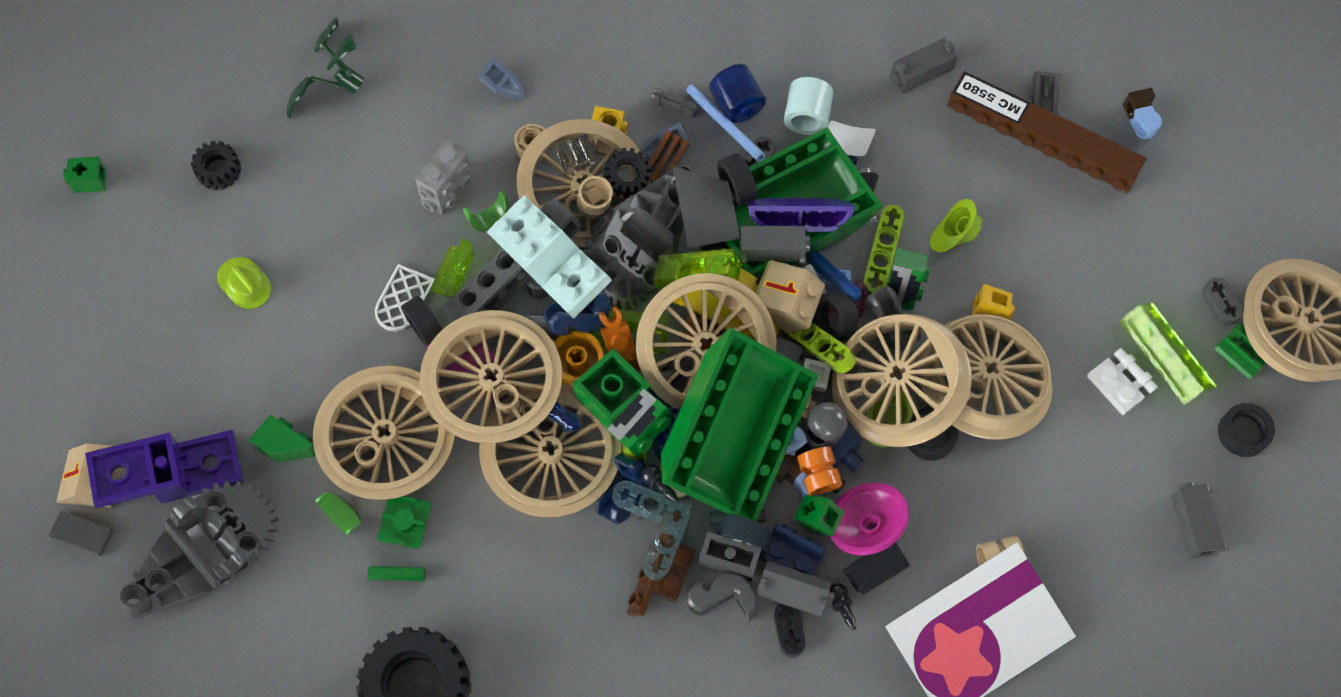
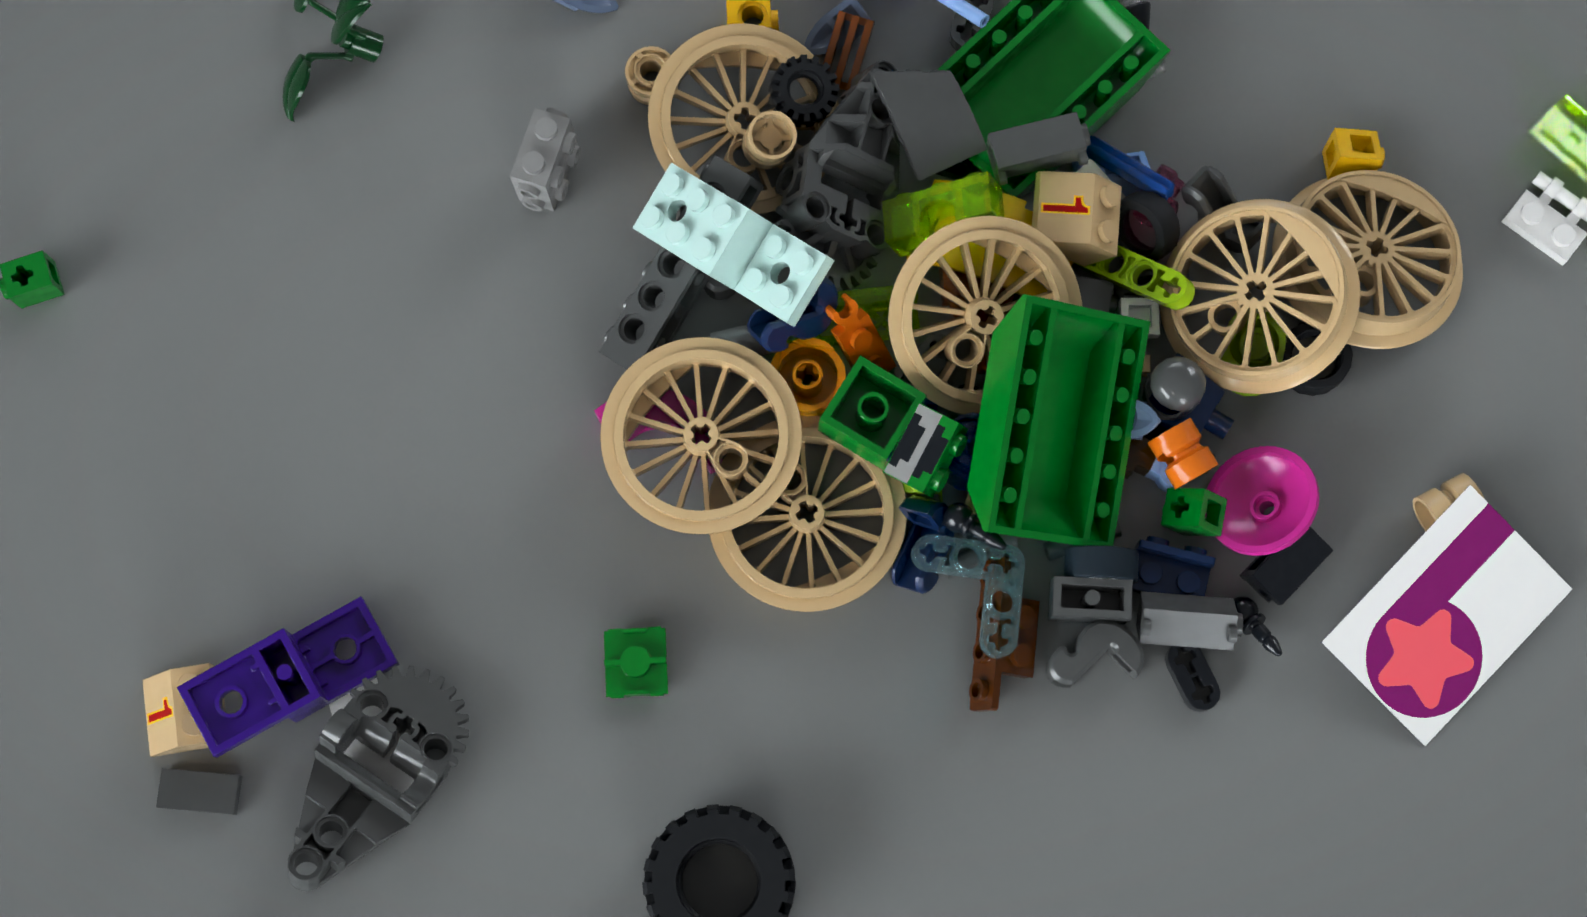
camera: 10 degrees left, 10 degrees up
(214, 152) = (204, 199): black tyre -> none
(244, 283) = (306, 380): lime piece -> none
(280, 442) = (434, 597): green slope -> none
(339, 512) = (546, 673): bright green helmet -> none
(383, 297) = (542, 307): white window -> none
(396, 573) = (646, 735): green piece -> none
(405, 385) = (585, 472): tan piece -> none
(421, 319) = (578, 376): black tyre -> none
(453, 269) = (595, 289): clear neon green bracket -> none
(486, 219) = (623, 197): bright green helmet -> none
(565, 418) = (817, 467): clear blue pin -> none
(577, 154) = (727, 82): clear smoke brick -> none
(739, 177) = (967, 63): black tyre -> none
(813, 213) = (1064, 90): dark purple brick -> none
(882, 250) = (1187, 111): lime beam -> none
(906, 277) = (1231, 144): brick -> none
(958, 227) = (1276, 52): lime piece -> none

